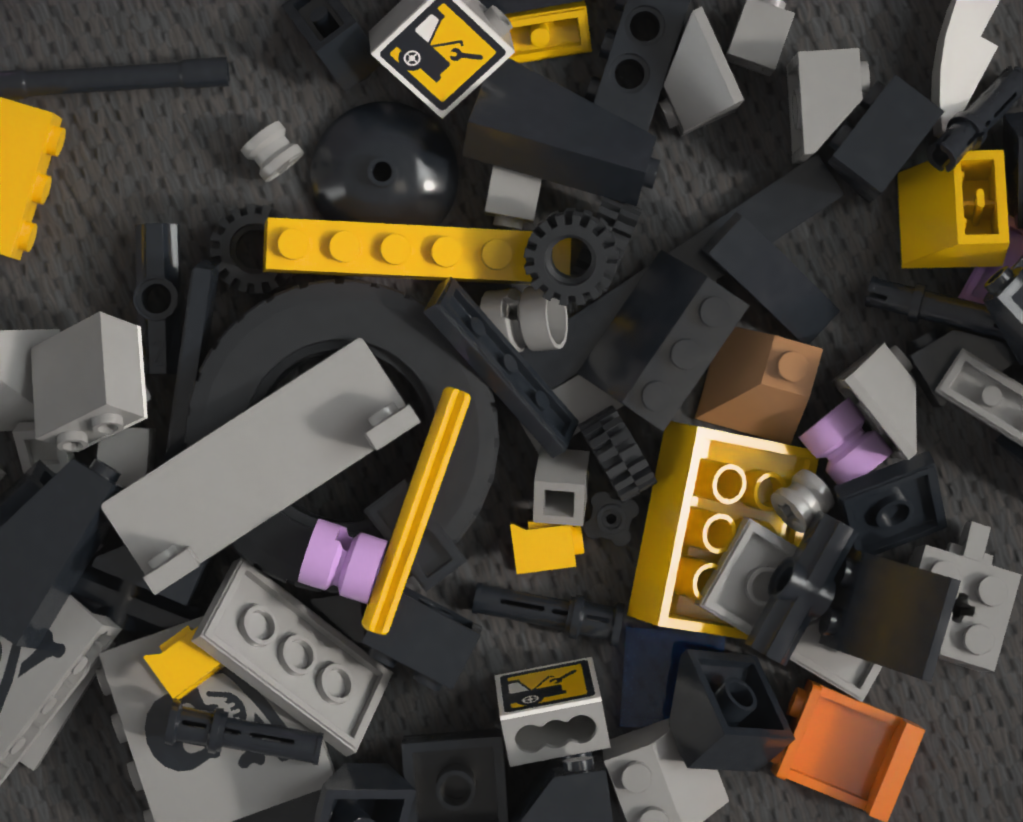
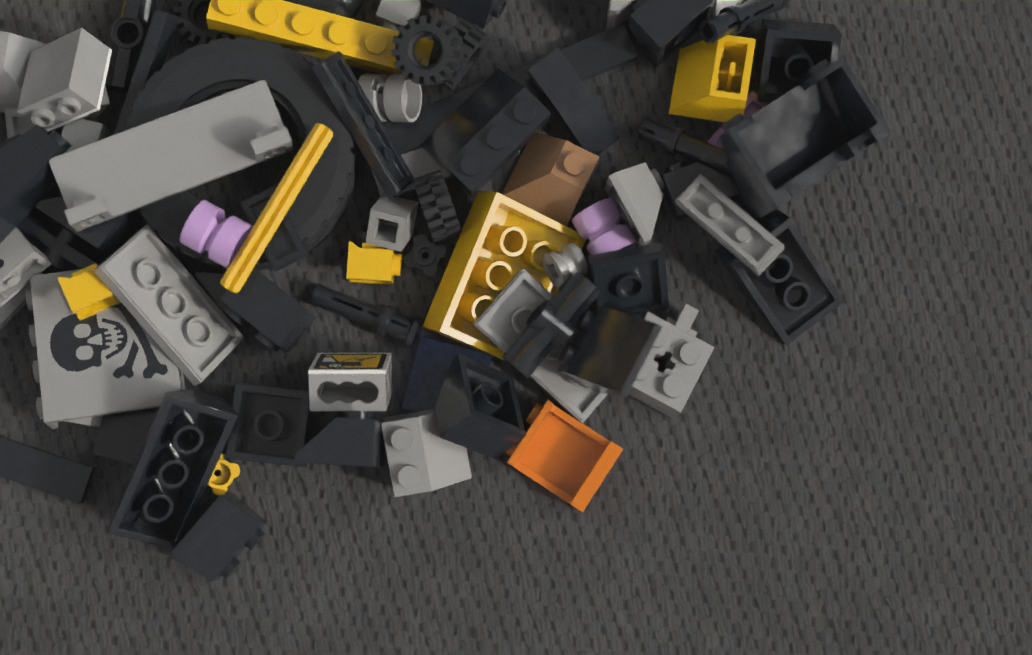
camera: 10 degrees right, 5 degrees down
(305, 745) = (102, 345): black pin -> none

